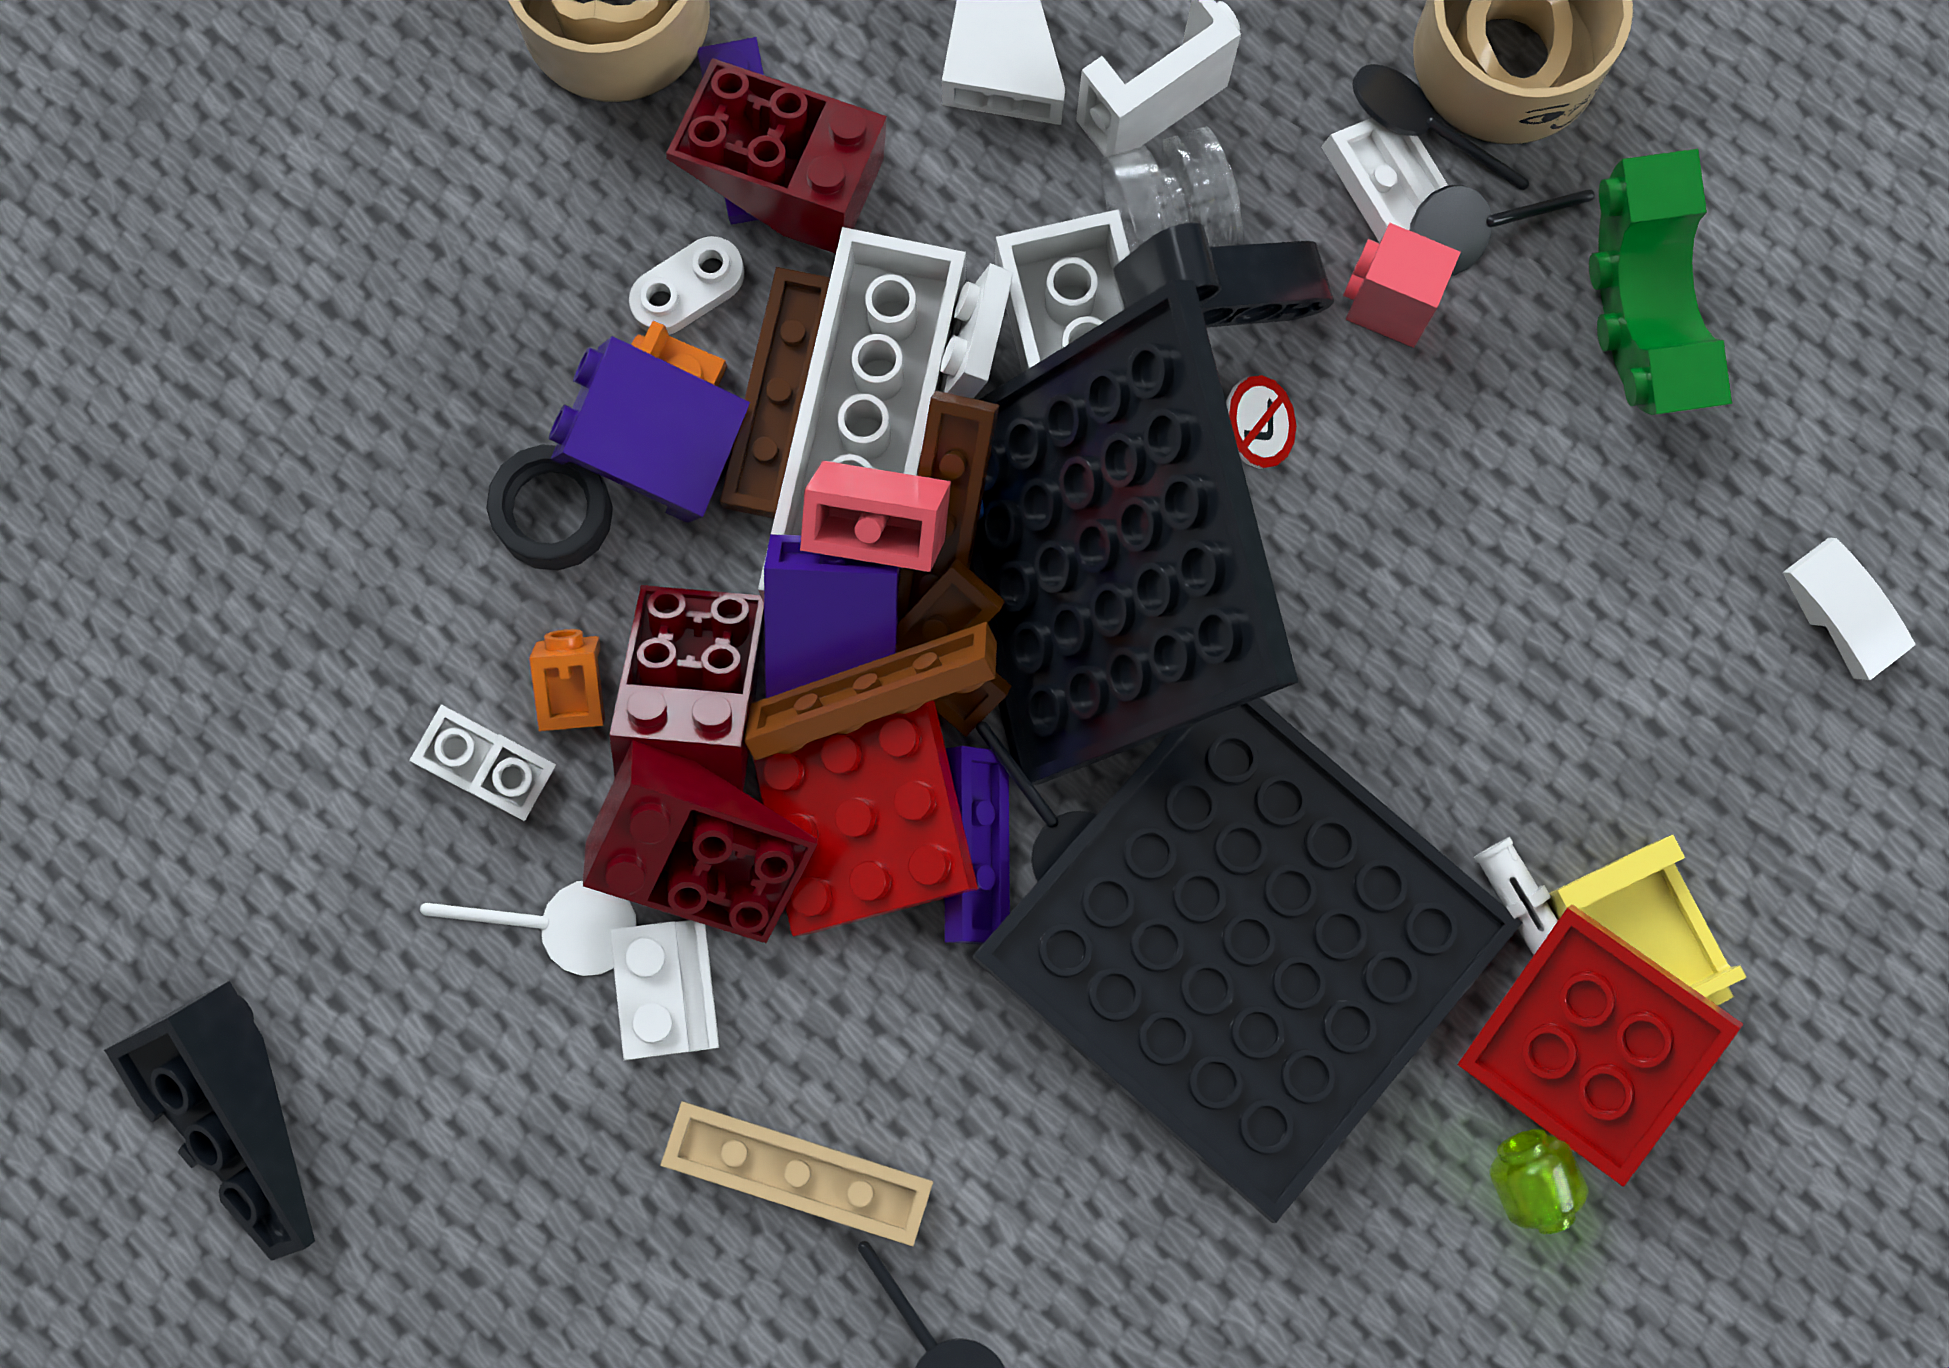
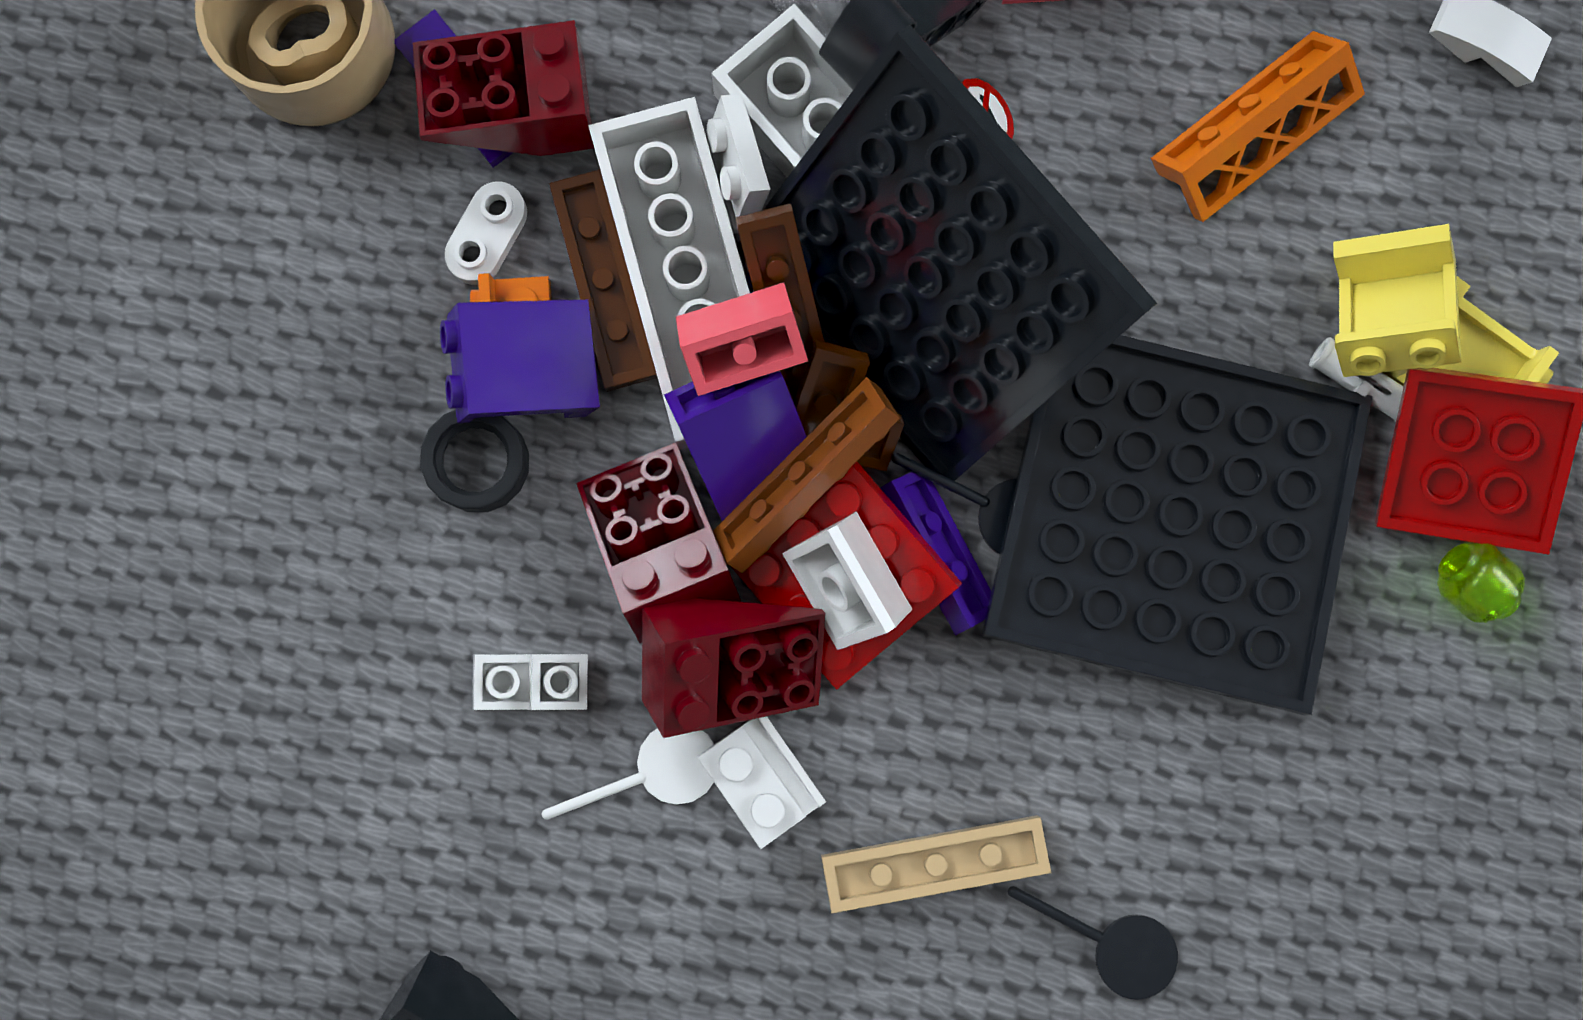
camera: 30 degrees left, 5 degrees up
(567, 681) = (561, 586): orange bracket -> none
(859, 821) = (849, 581): none -> white slope
(1551, 558) = (1260, 111): none -> orange fence
(1594, 832) = (1397, 302): none -> light yellow panel

